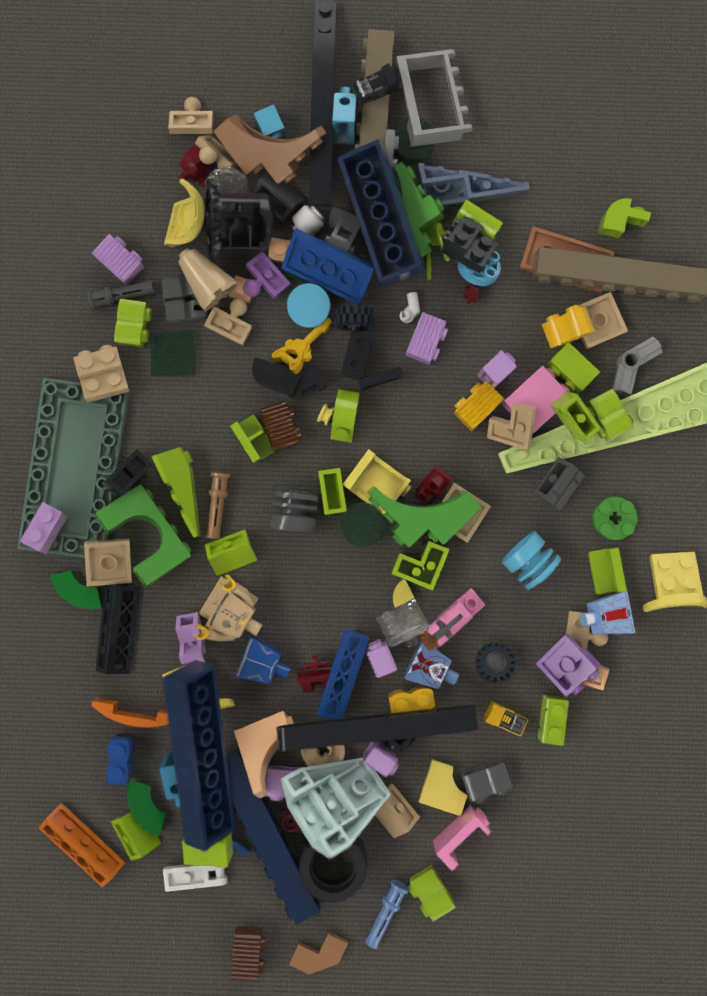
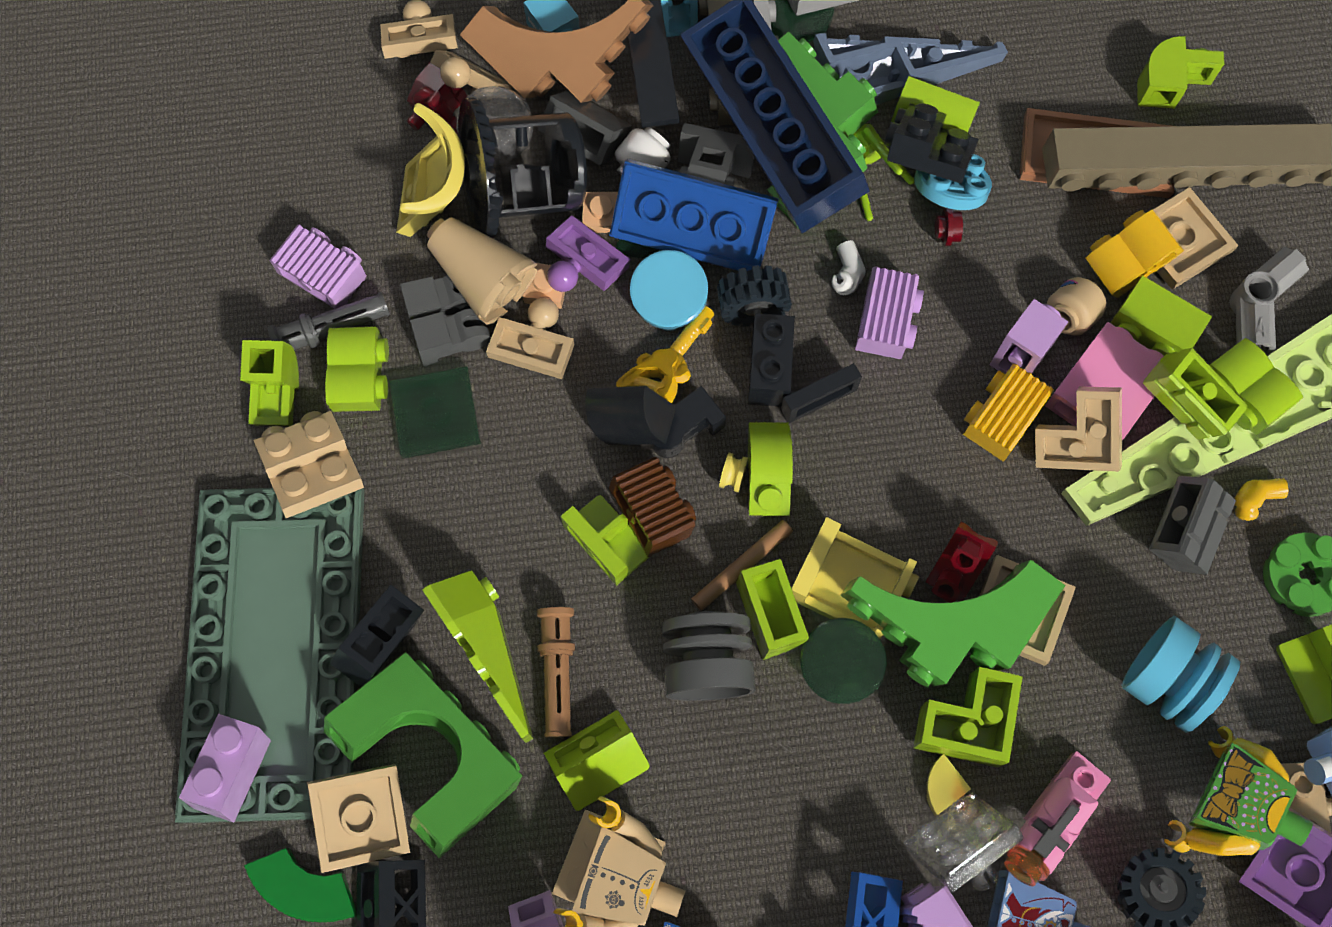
camera: 10 degrees left, 15 degrees down
(86, 324) = (272, 377): none -> lime brick
(321, 464) = (745, 561): none -> medium nougat bar
(529, 351) = (1079, 303): none -> tan head
(544, 628) = (1242, 803): none -> torso
(598, 471) = (1254, 493): none -> yellow arm

